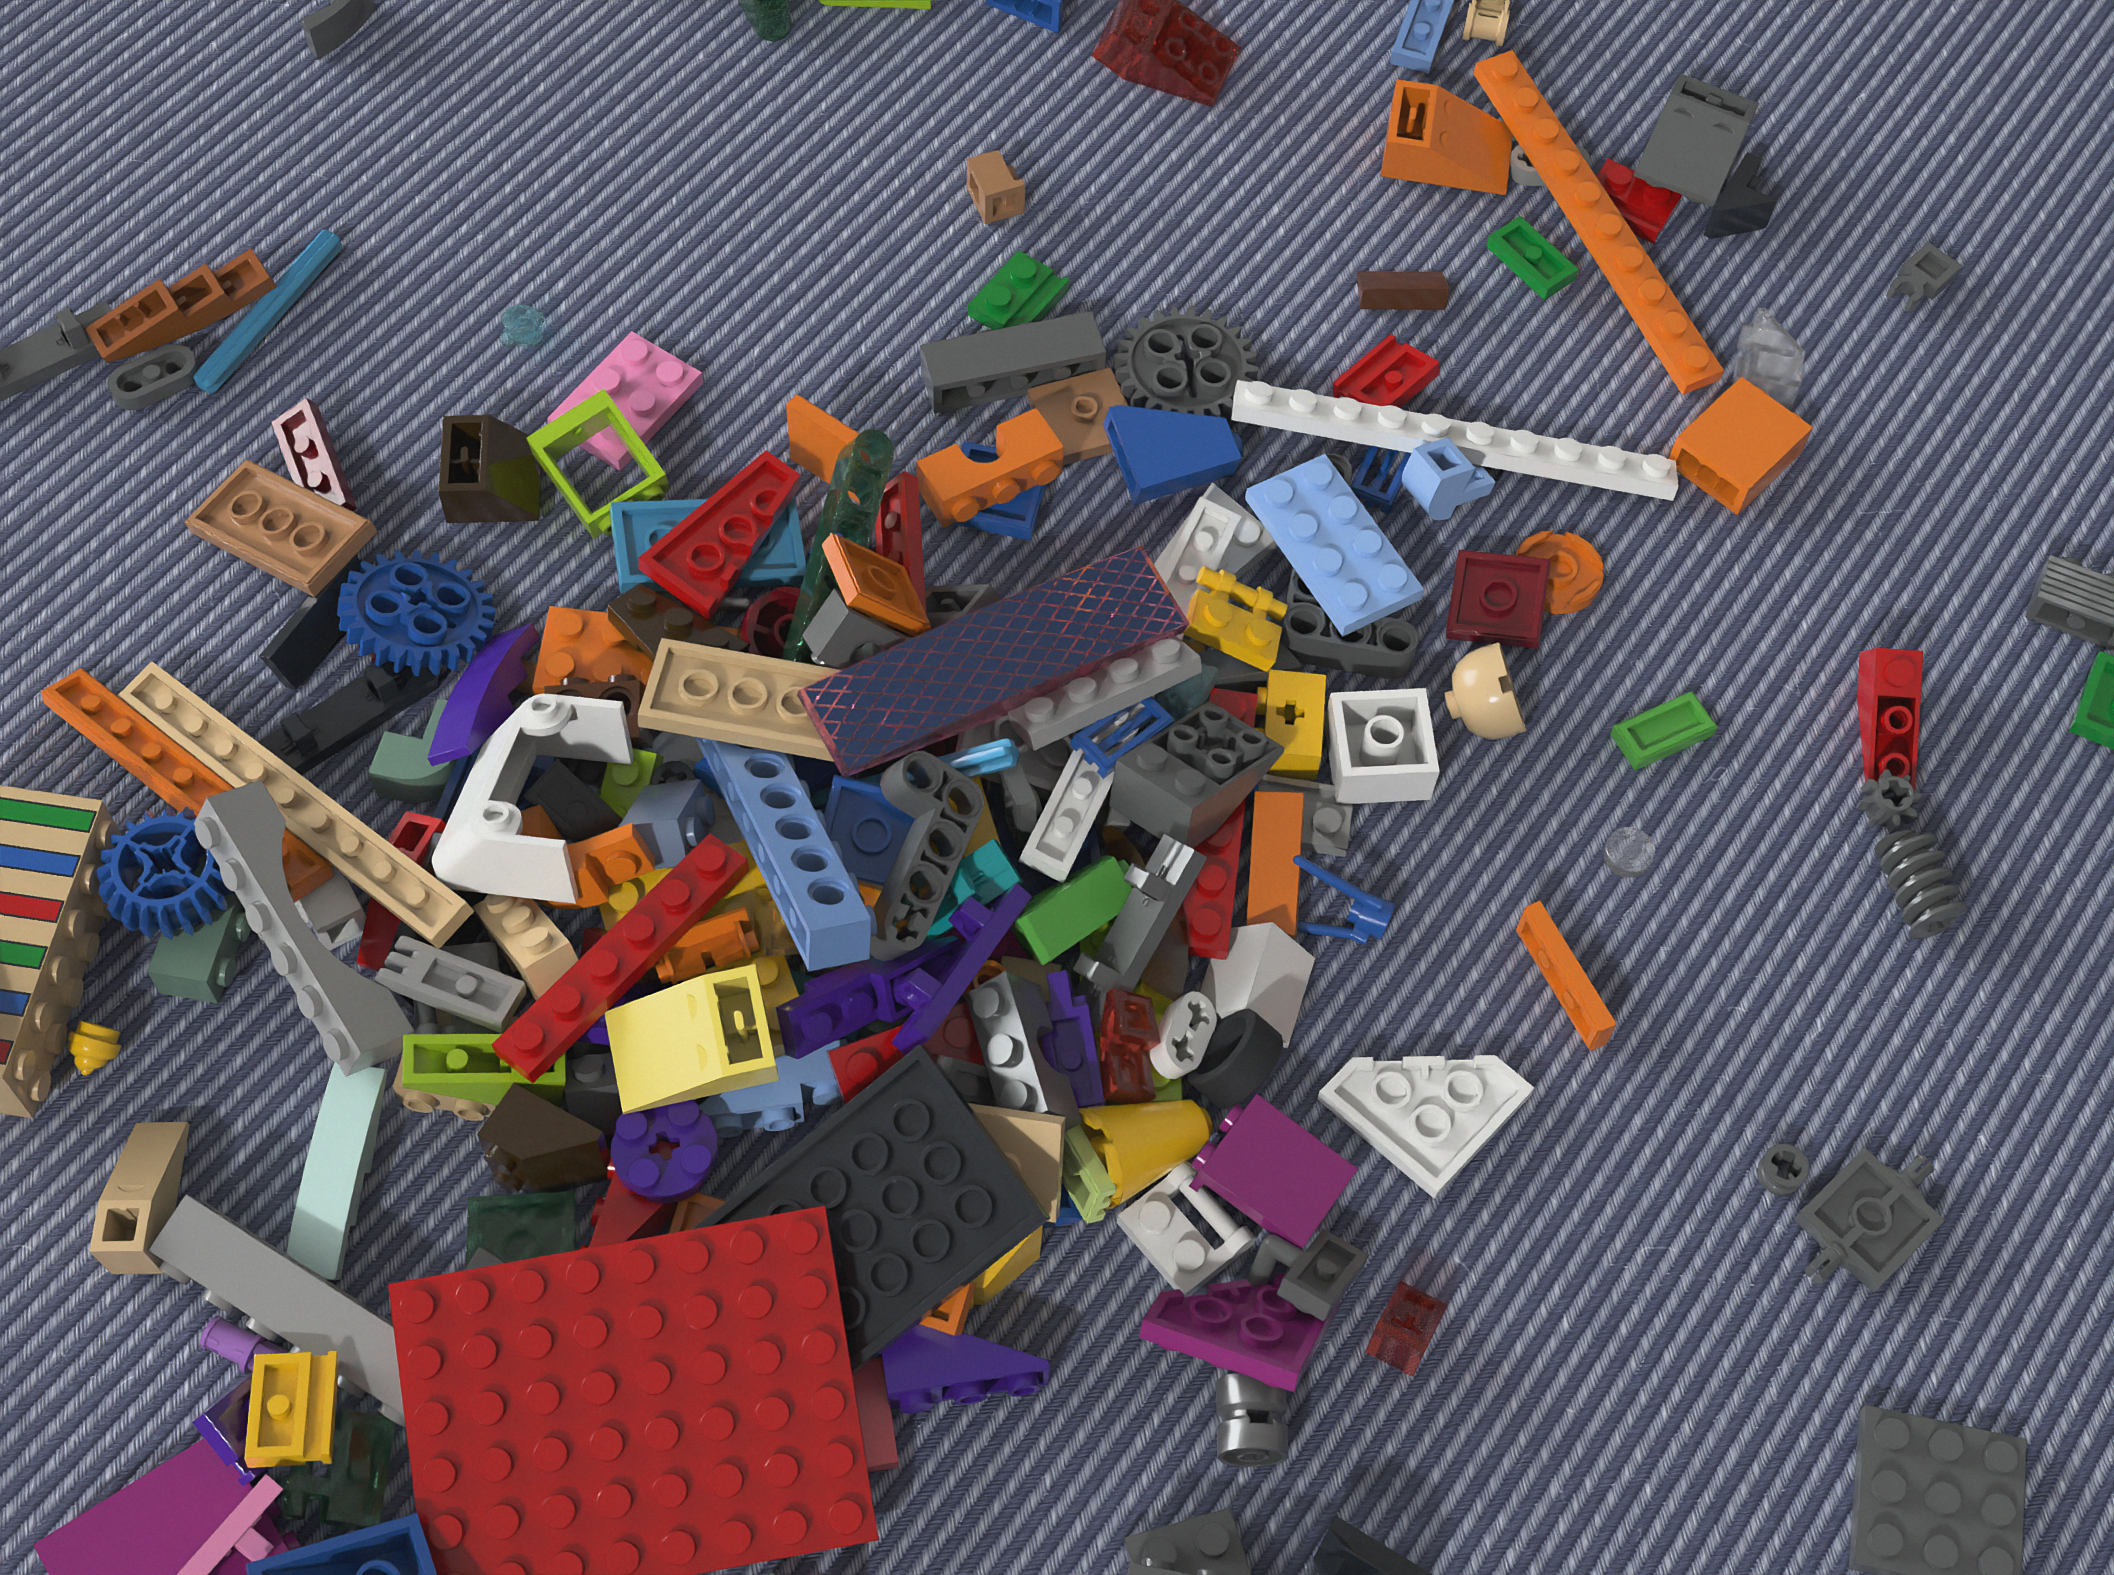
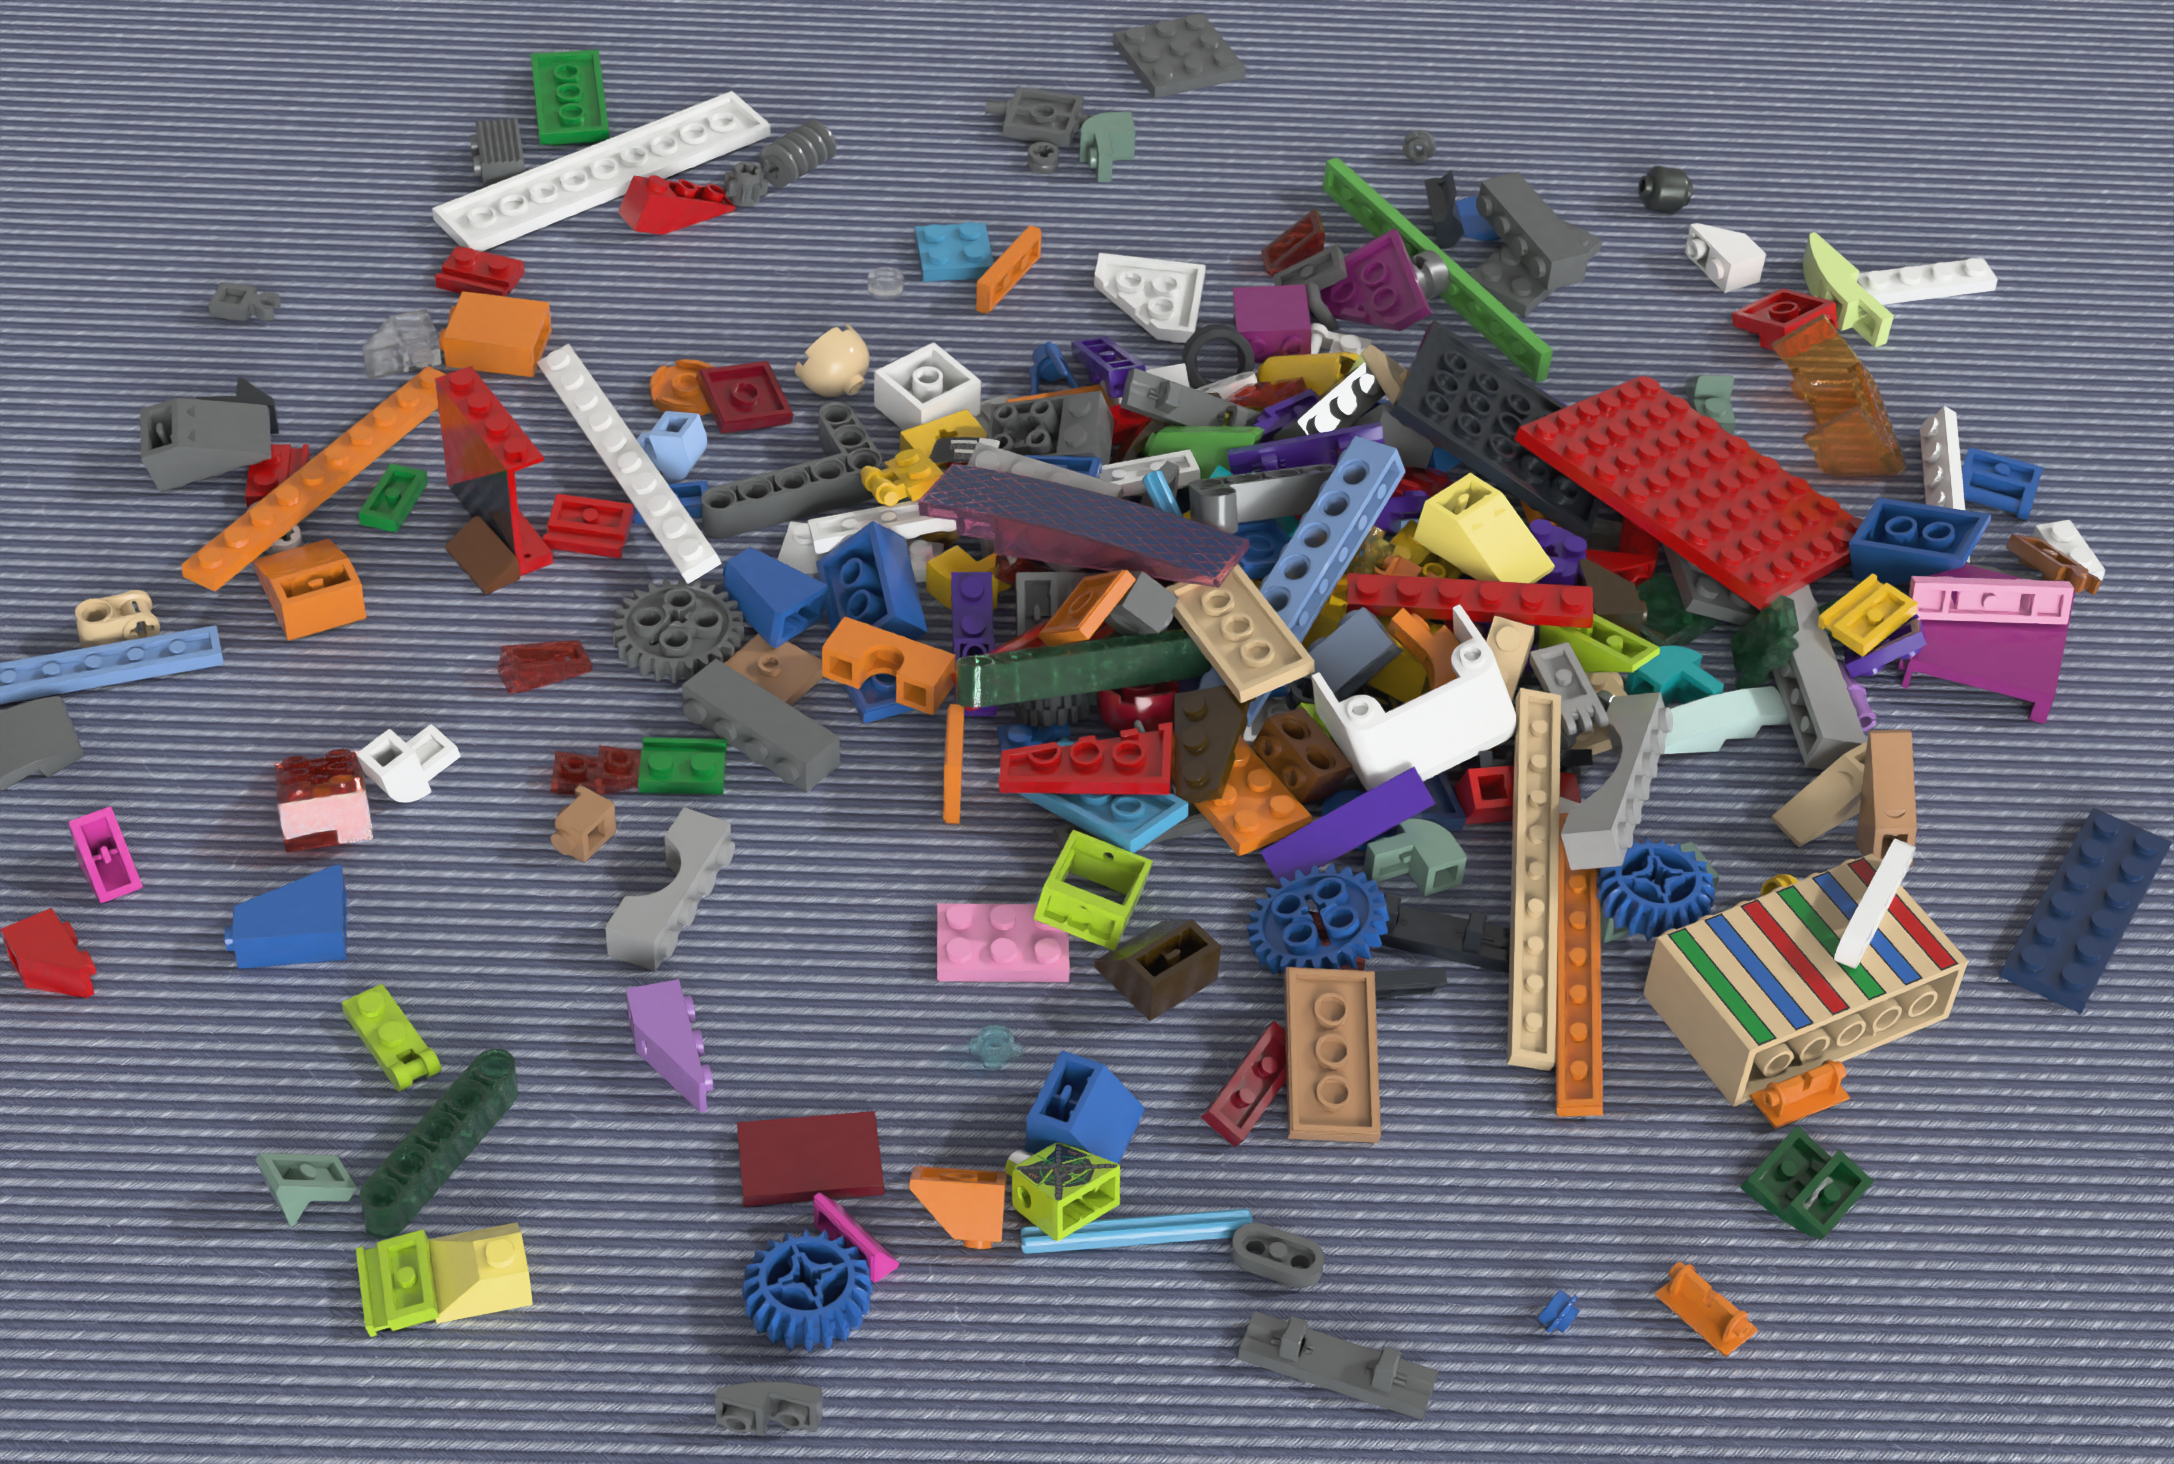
camera: 125 degrees left, 15 degrees down
(60, 1190) = (1887, 793): none -> medium nougat slope
(166, 314) = (1205, 1277): dark orange slope -> none
(338, 264) = (1063, 1188): none -> lime torso
(357, 1279) = (1765, 643): none -> clear green plate
(388, 322) = (1084, 1109): none -> blue slope
(399, 211) = (963, 1202): none -> orange slope
(411, 85) = (808, 1278): none -> blue gear
(432, 139) = (838, 1223): none -> dark pink slope
(432, 1181) = (1675, 675): none -> teal brick
(531, 160) = (809, 1156): none -> dark red tile
(717, 125) = (664, 1038): none -> medium lavender slope
(898, 240) = (649, 925): none -> light grey arch
(965, 559) = (972, 621): none -> dark purple slope
(1060, 232) = (608, 773): none -> clear red slope
(1101, 524) = (873, 583): none -> blue slope
(1151, 96) = (407, 767): none -> white brick
(1229, 234) = (529, 665): none -> clear red slope
(1235, 689) = (957, 448): none -> sticker
(1291, 1476) = (1464, 292): none -> bright green plate
(1301, 931) = (1106, 362): none -> dark purple hinge
(1334, 544) = (789, 465): light blue plate -> none
(1464, 280) = (481, 458): none -> red panel
(1647, 956) = (953, 251): none -> dark azure plate
(1663, 730) = (775, 299): bright green tile -> none
(1774, 1247) = (1107, 139): none -> sand green brick
(1868, 493) = (479, 272): none -> red plate
(2000, 696) = (600, 172): none -> white plate

